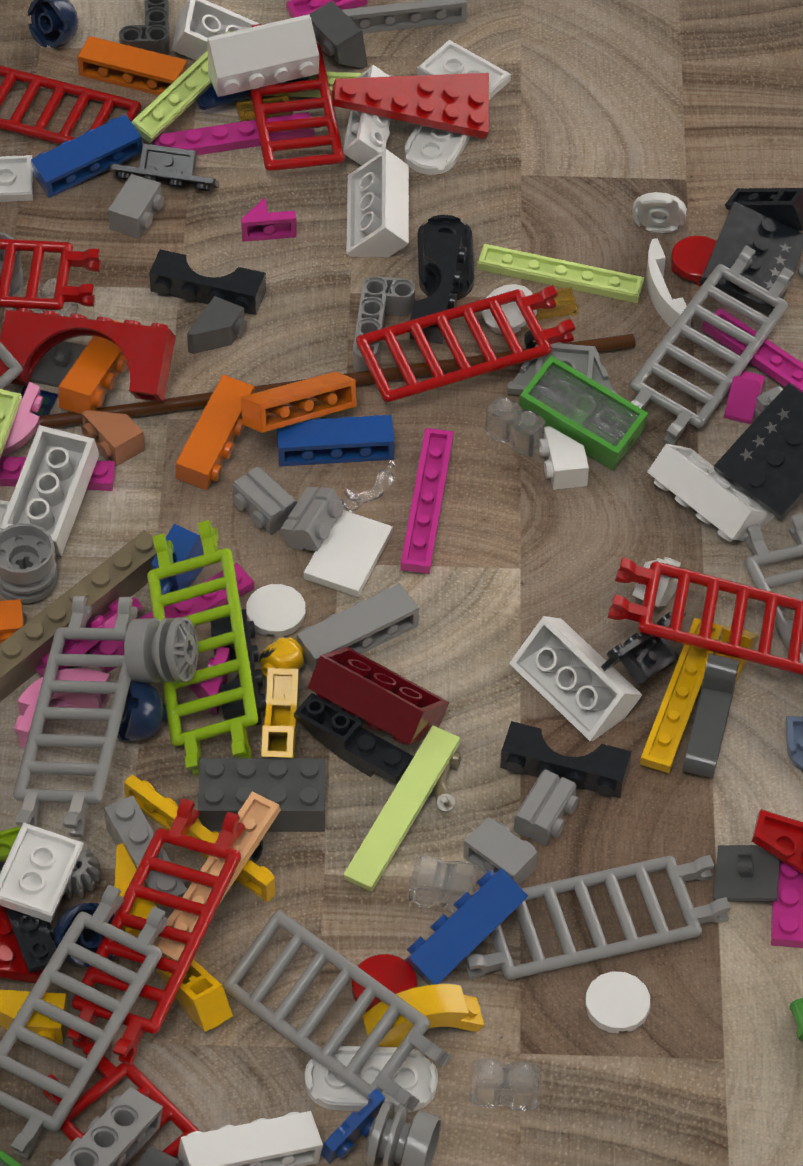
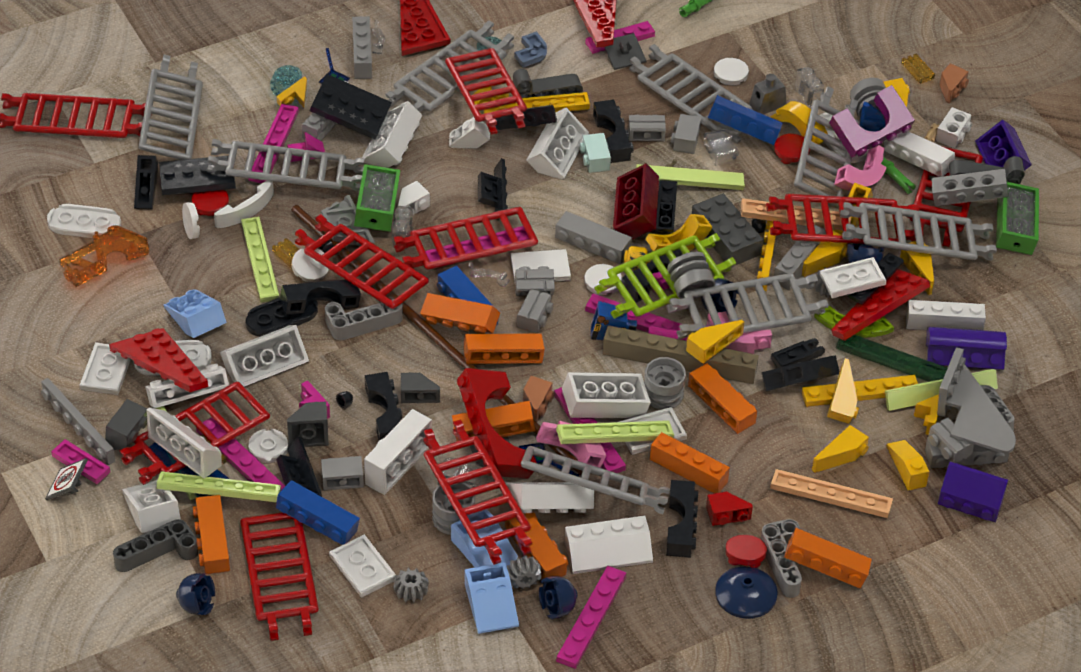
camera: 120 degrees left, 5 degrees down
(38, 623) = (713, 339): none -> yellow slope
(121, 255) = (396, 452): none -> white brick
(219, 195) = (309, 424): none -> dark grey slope
(235, 167) = (268, 445): none -> white tile
(239, 1099) = (897, 176): none -> bright green pin
(244, 1032) = (871, 173): none -> bright pink arch
(254, 256) = (344, 399): none -> black hinge
(313, 1051) = (858, 140): none -> arch
(473, 494) = (423, 260): none -> red bar
(497, 172) = (196, 312): none -> light blue slope
(513, 1000) = (768, 95): none -> flat silver torso
(531, 557) = (493, 188): none -> black bracket
(532, 710) = (595, 152): none -> light aqua brick
(665, 137) = (114, 240): none -> clear orange piece
(739, 135) = (81, 220): none -> white tile

